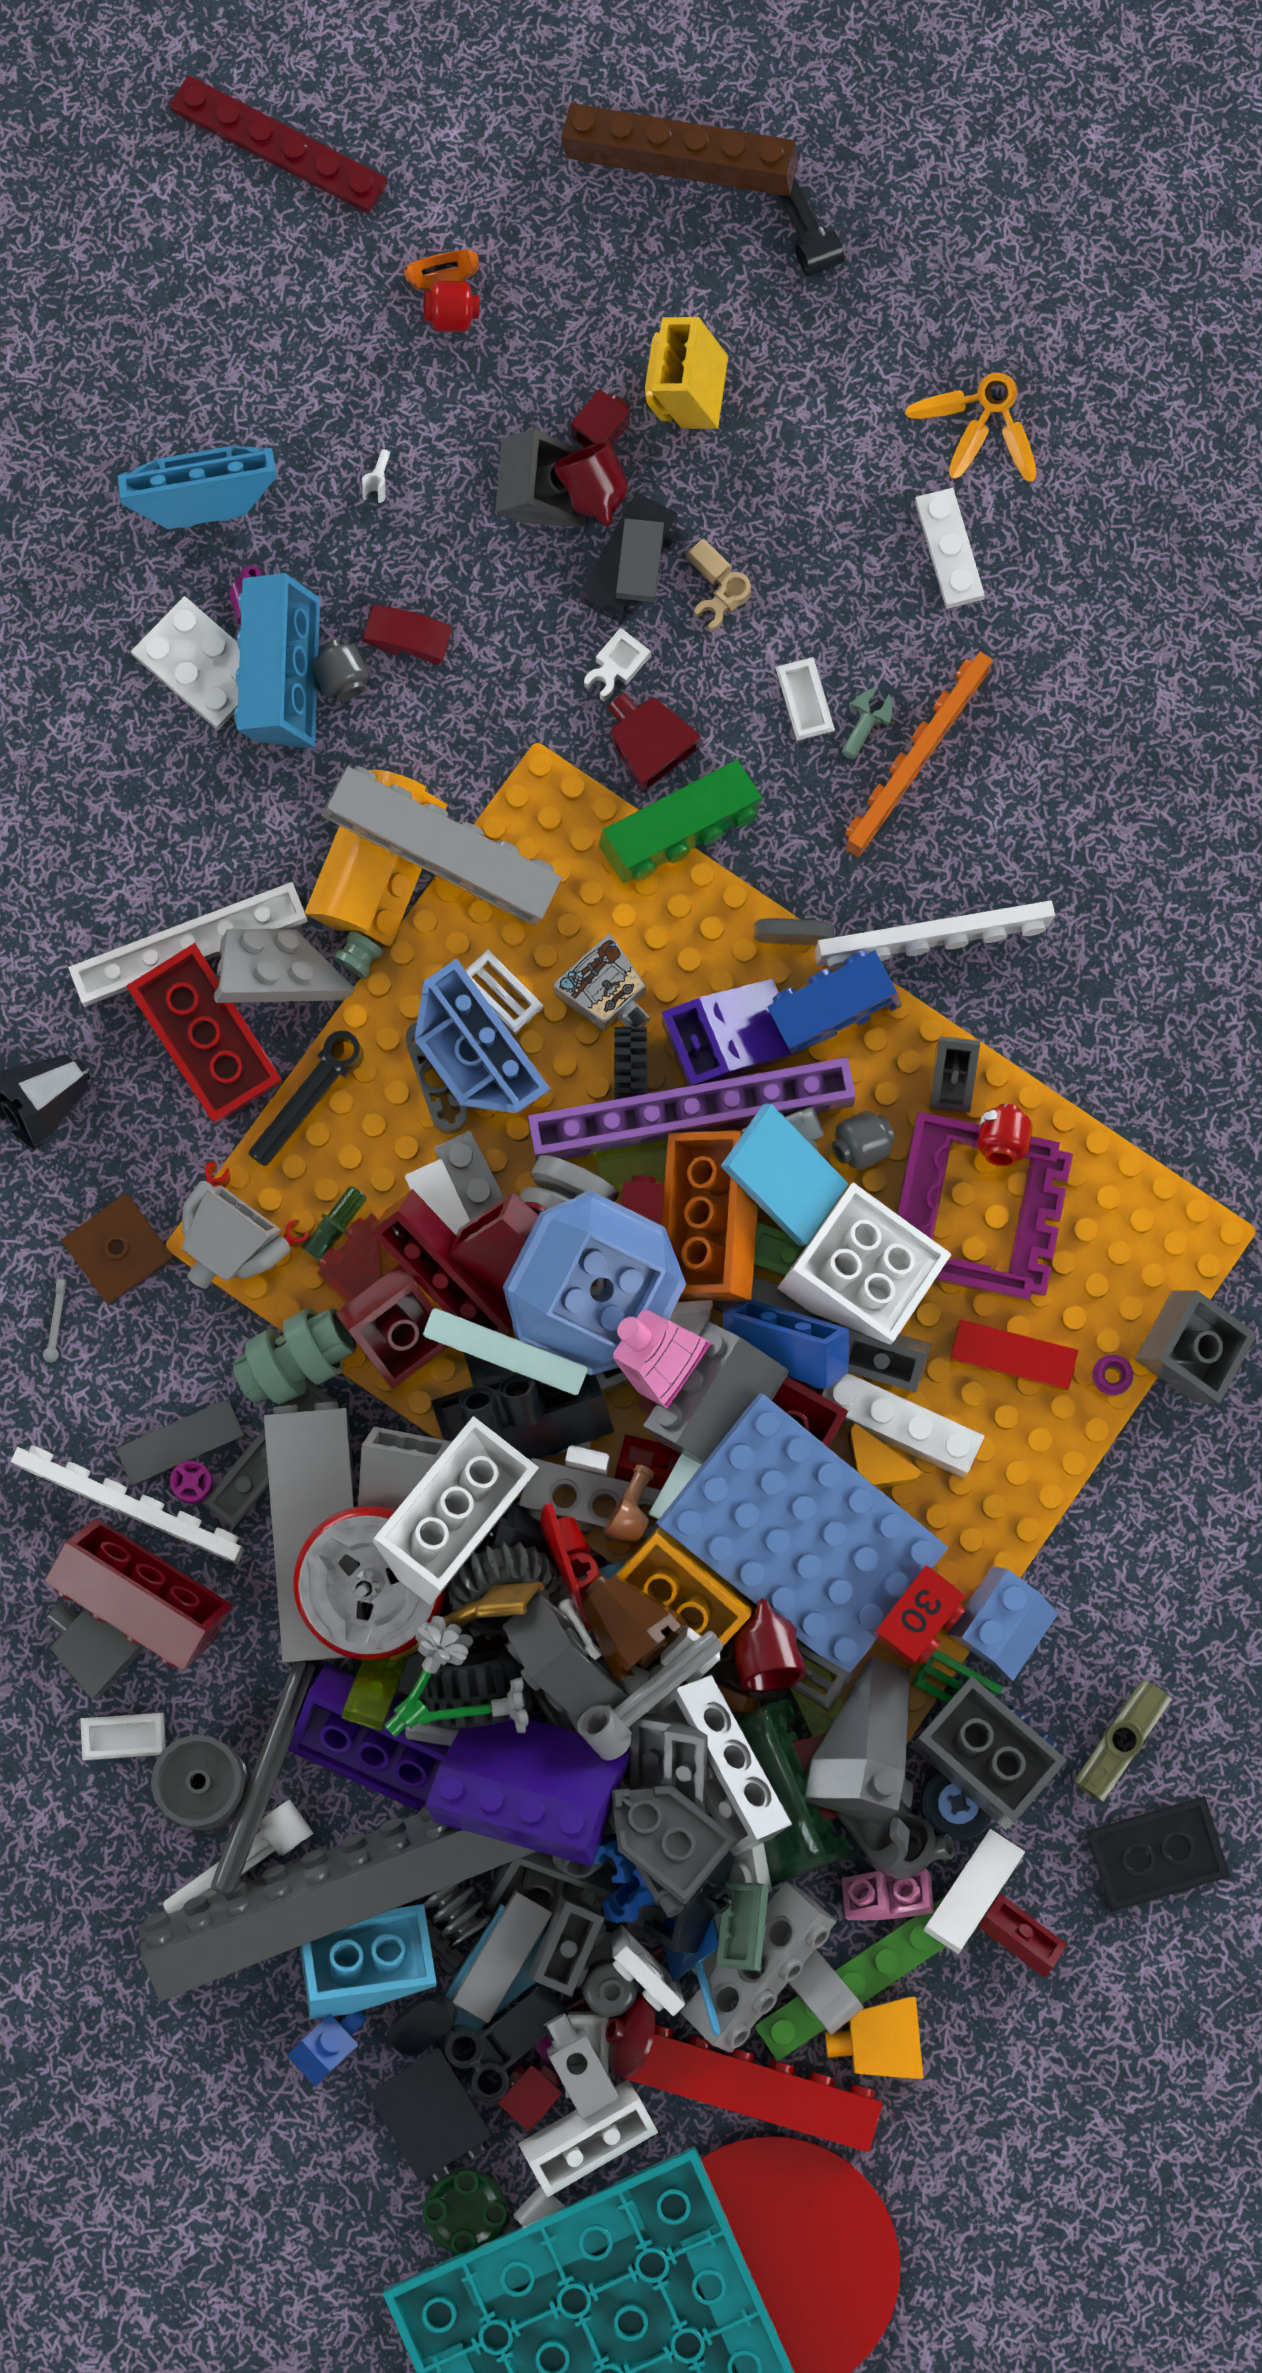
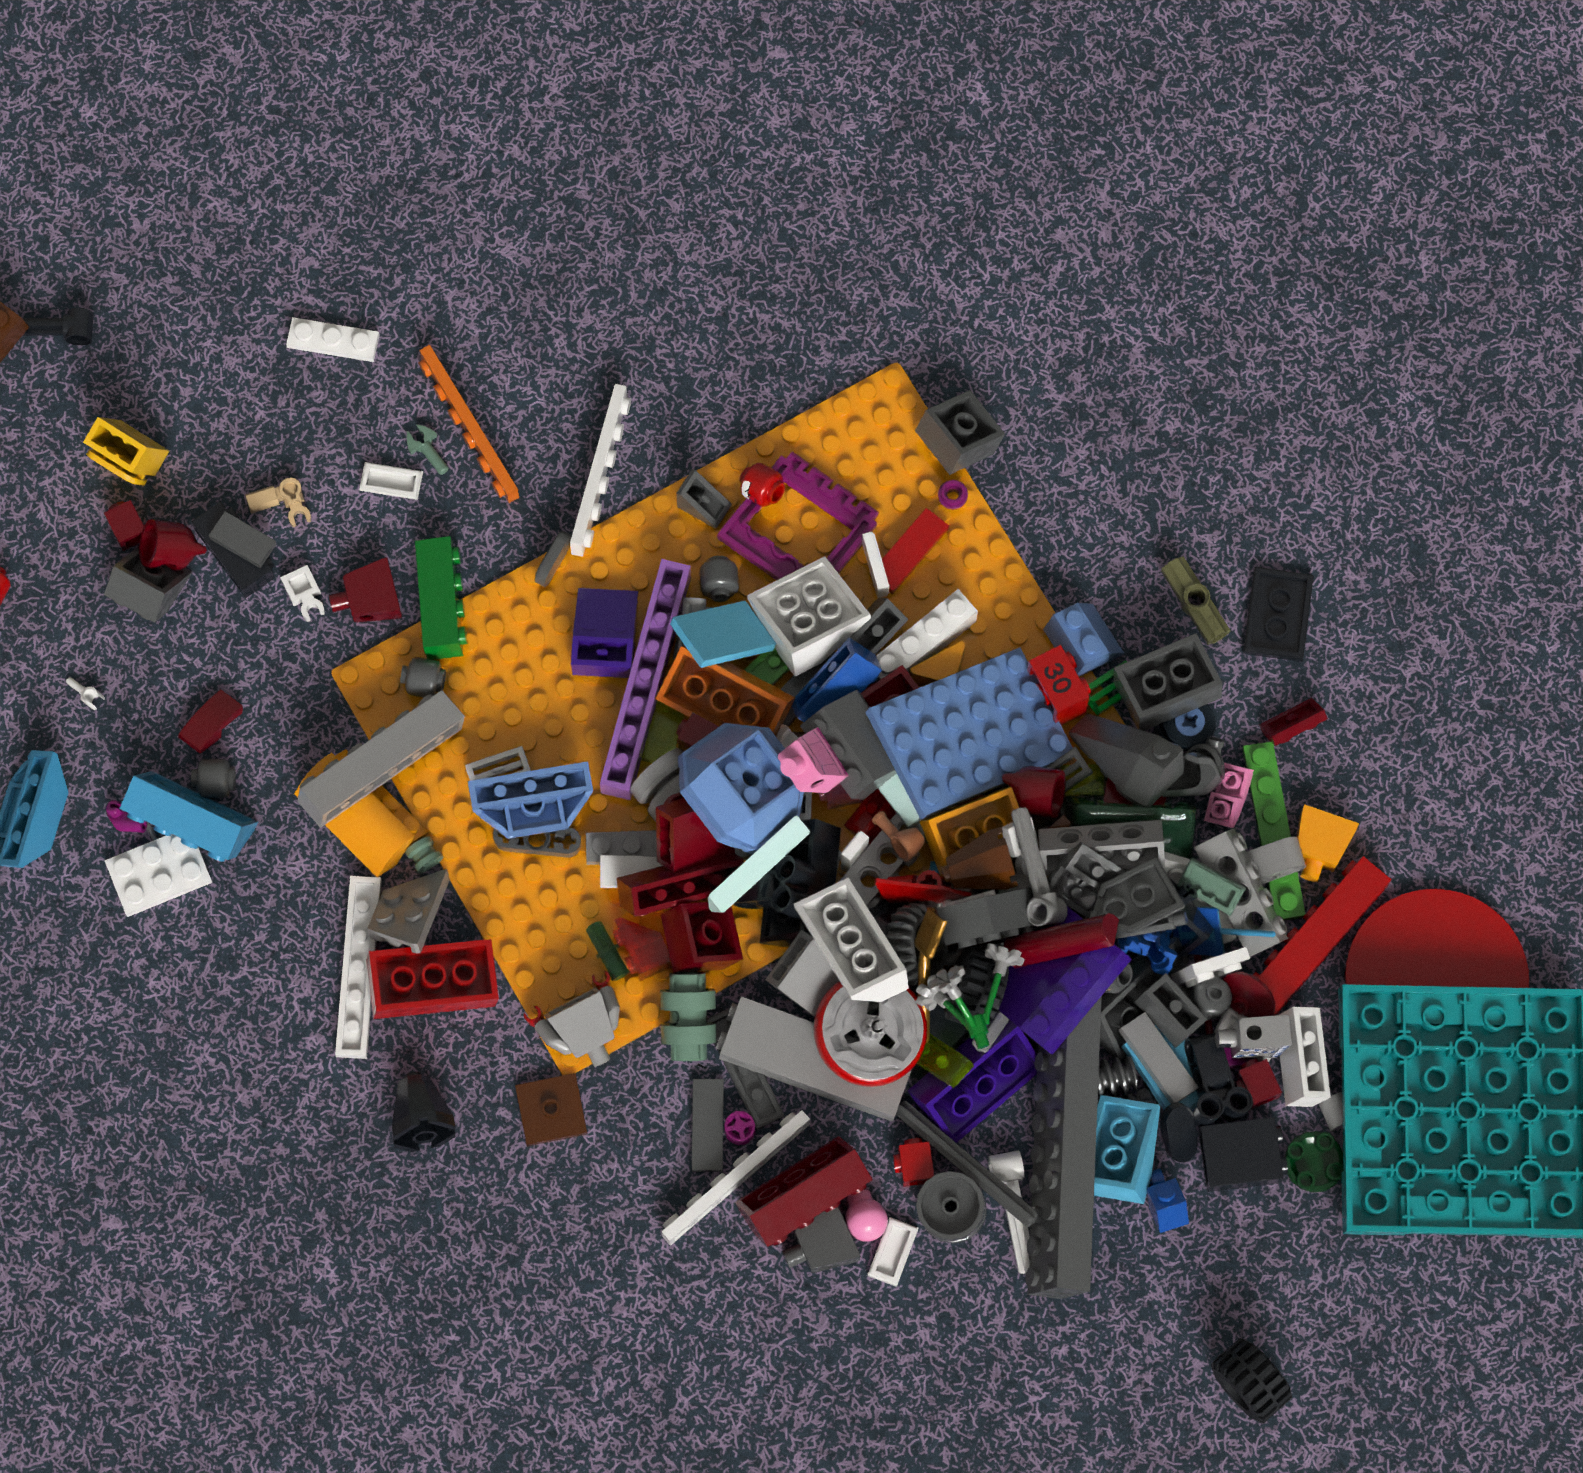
camera: 65 degrees left, 5 degrees down
(51, 1354) = (602, 1187): light grey hinge -> none
(141, 2254) = (1251, 1380): none -> black tyre
(145, 1685) = (865, 1217): none -> bright pink piece
(241, 1712) = (914, 1162): none -> red brick
(307, 1096) = (509, 931): black axle -> none
(571, 1769) = (1065, 939): none -> dark red brick
(572, 850) = (423, 677): none -> dark grey head
(604, 987) = (531, 698): torso -> none
(630, 1062) = (593, 703): black tyre -> none
(833, 1001) = (617, 551): blue wedge -> none
(969, 1320) = (875, 564): none -> white tile
(974, 1891) = (1251, 737): white tile -> none
(977, 431) = (260, 283): light orange plant -> none

